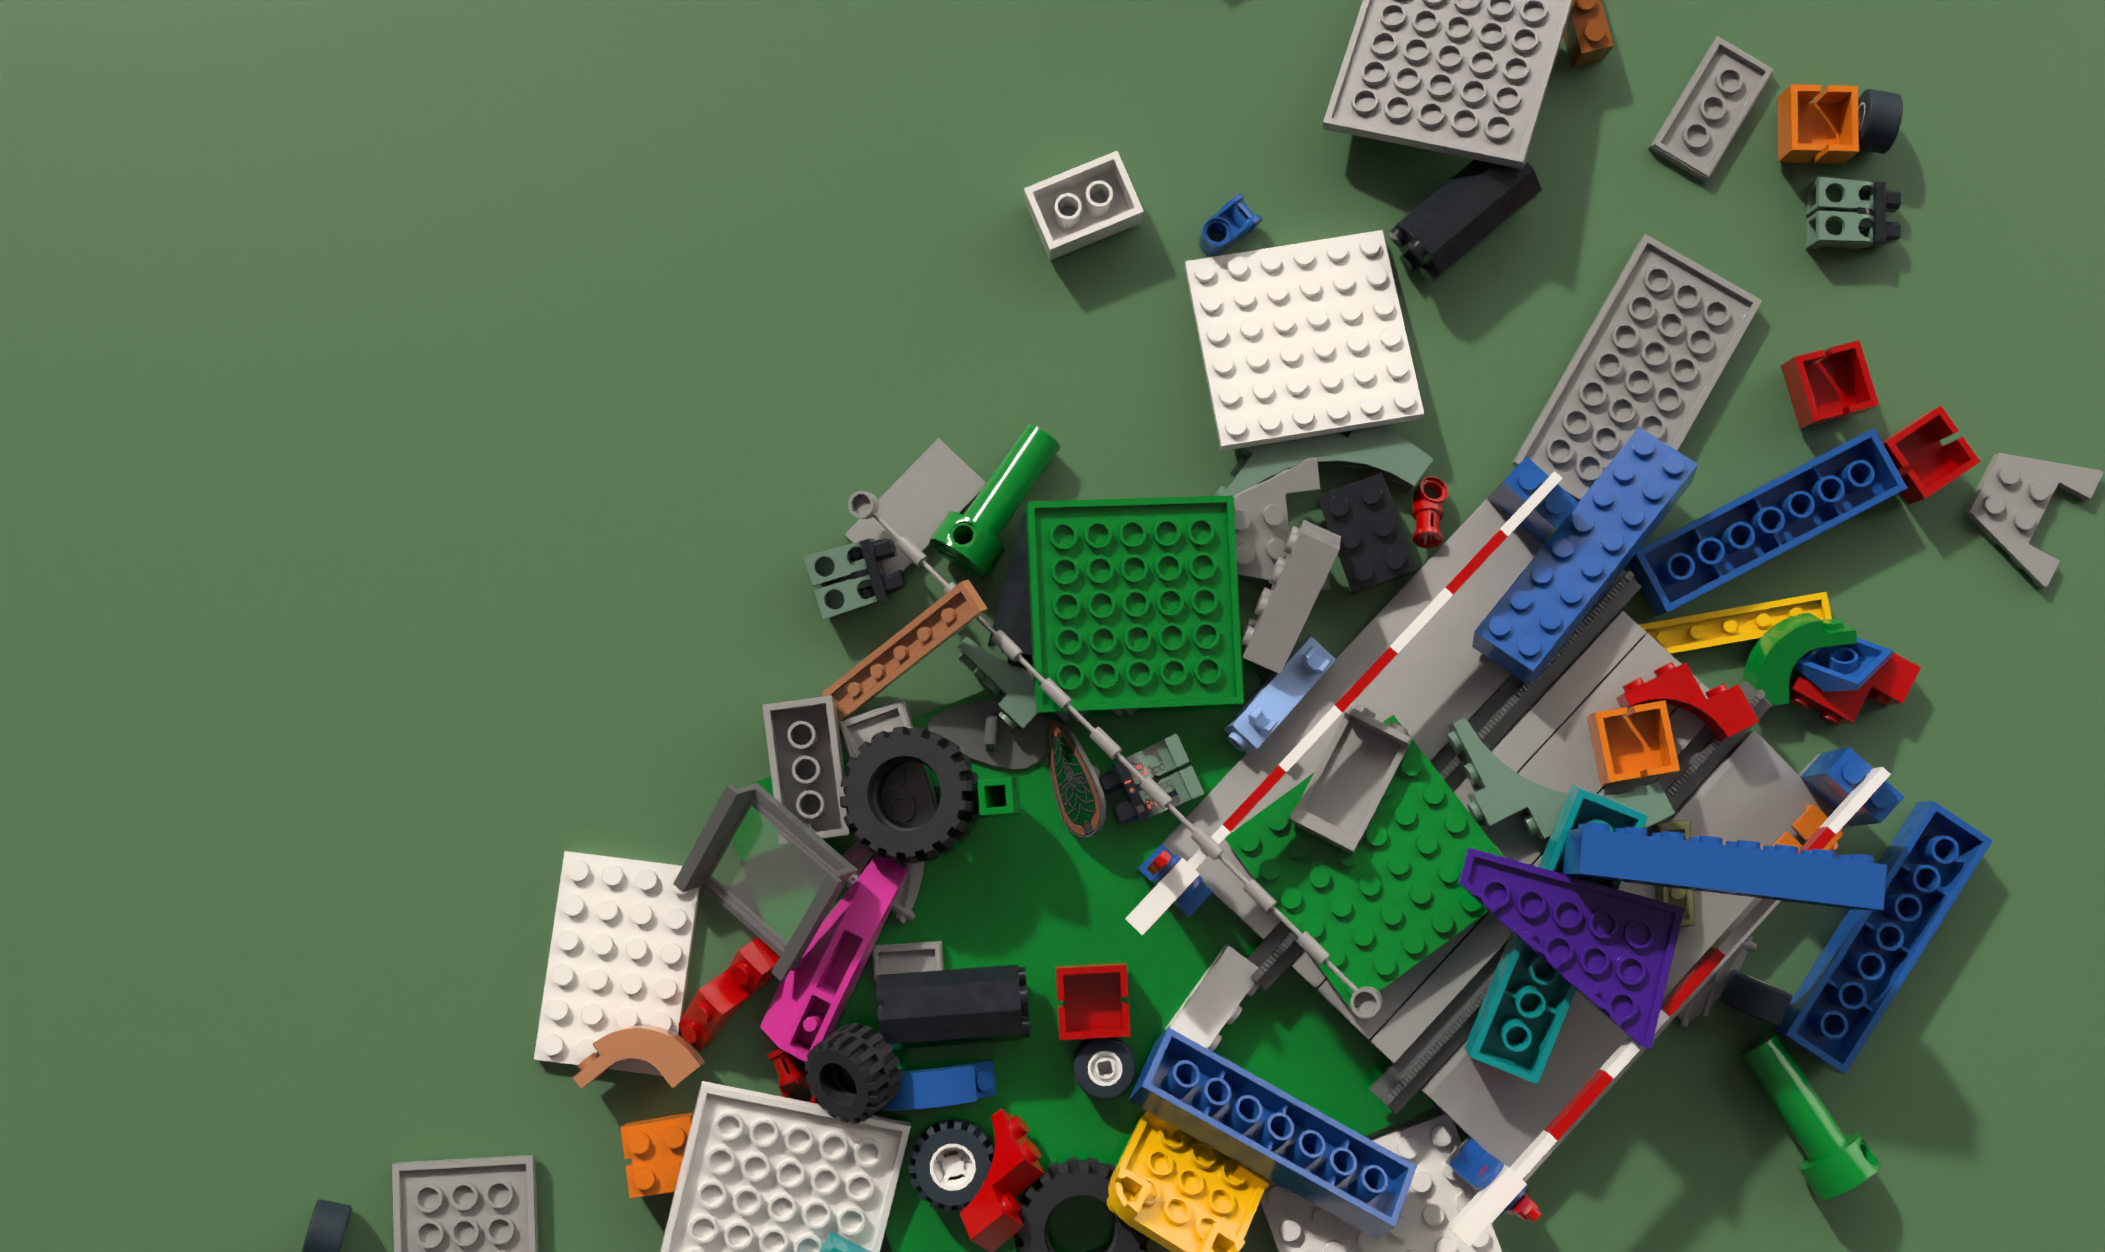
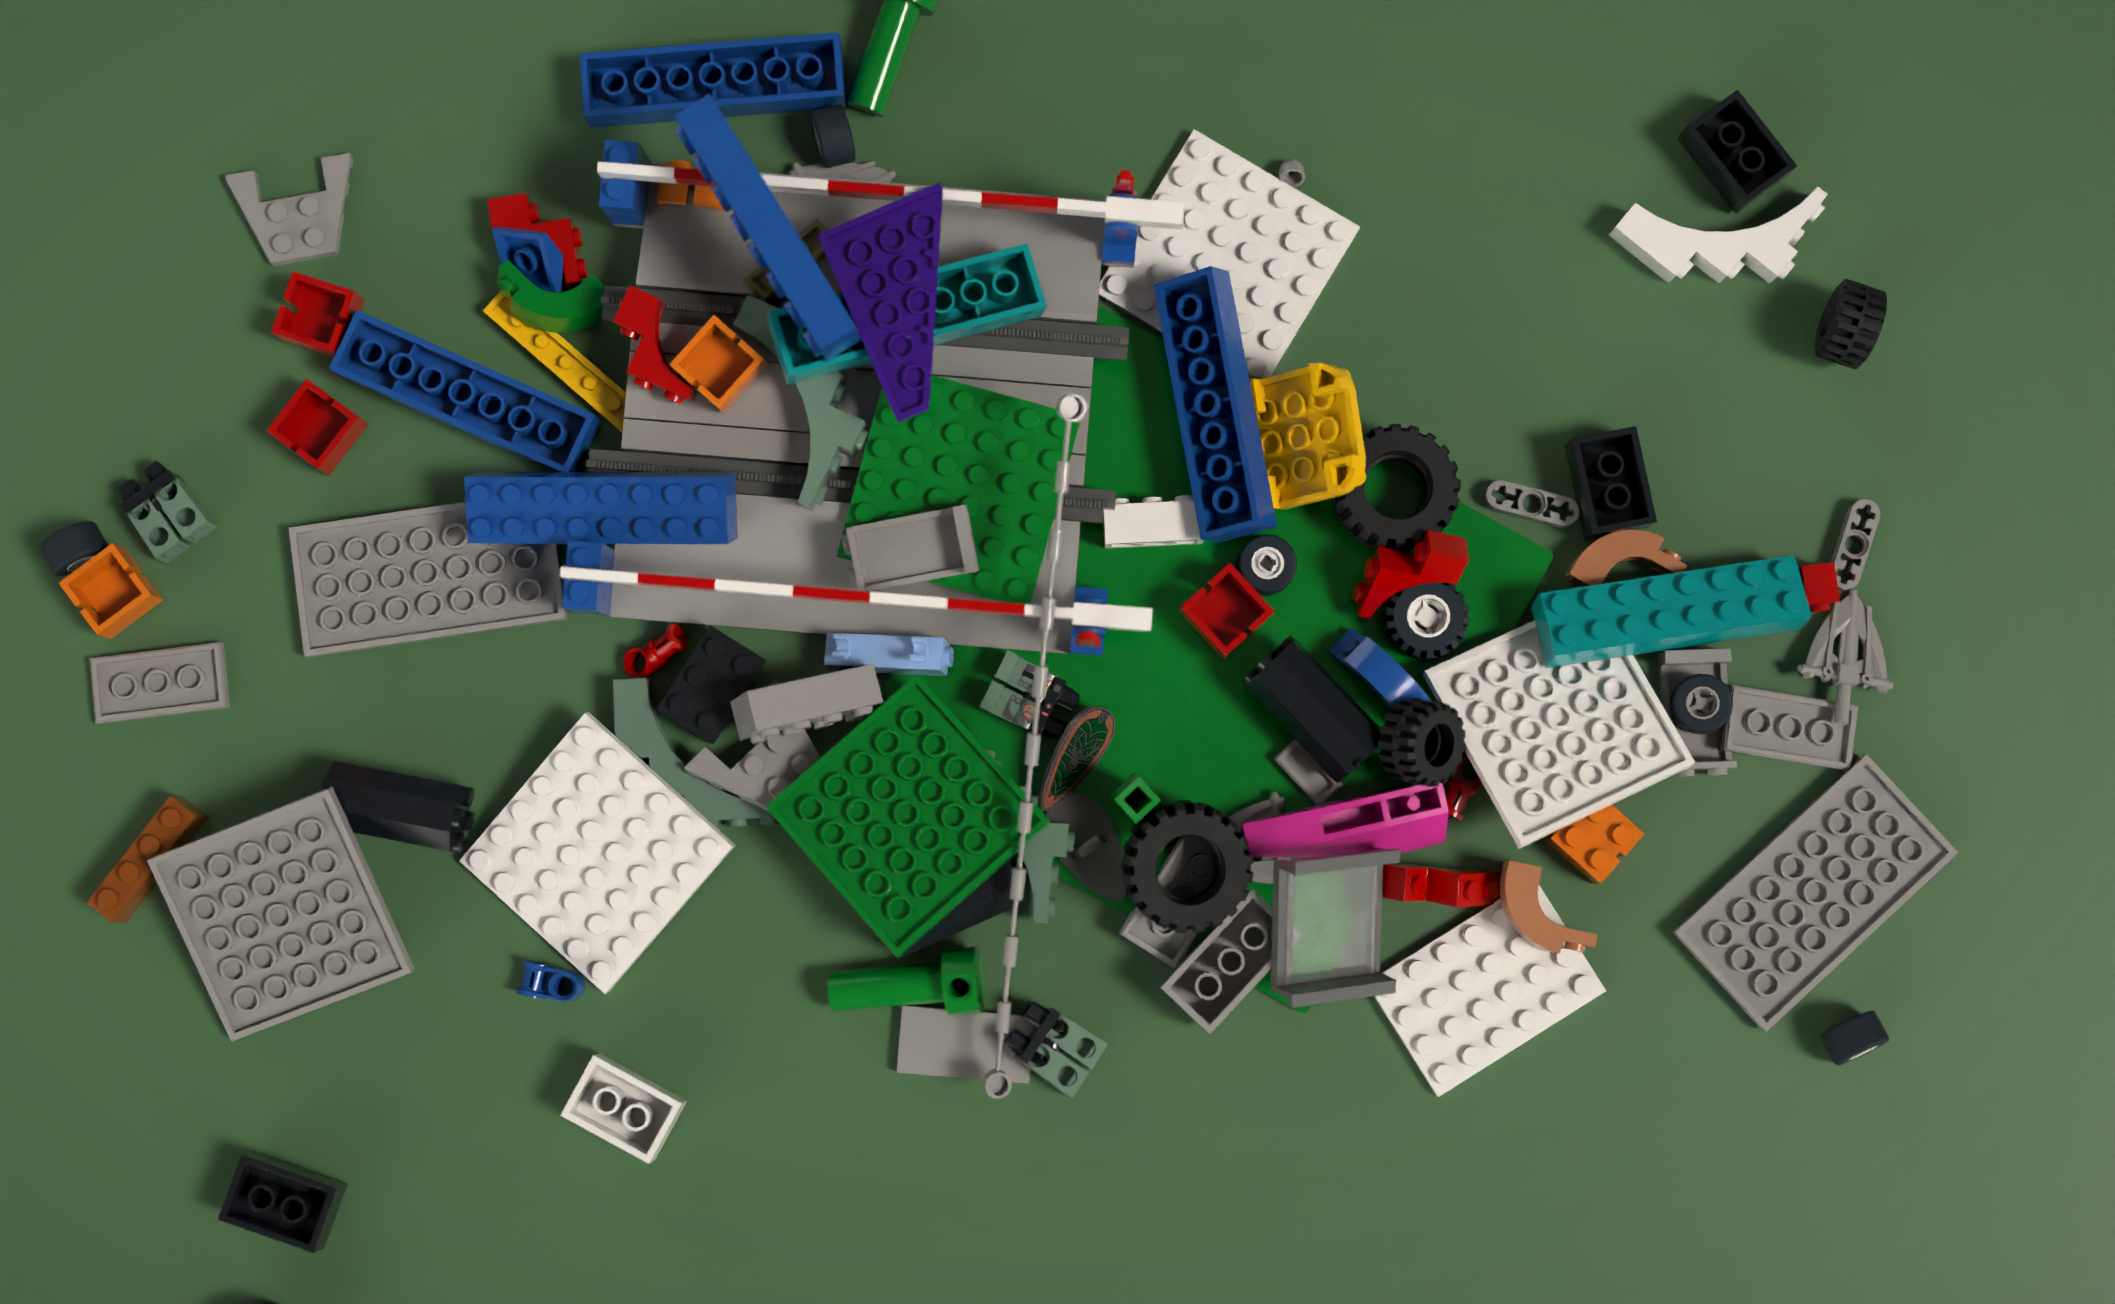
camera: 125 degrees left, 0 degrees up
(906, 649) = (1081, 959): nougat plate -> none

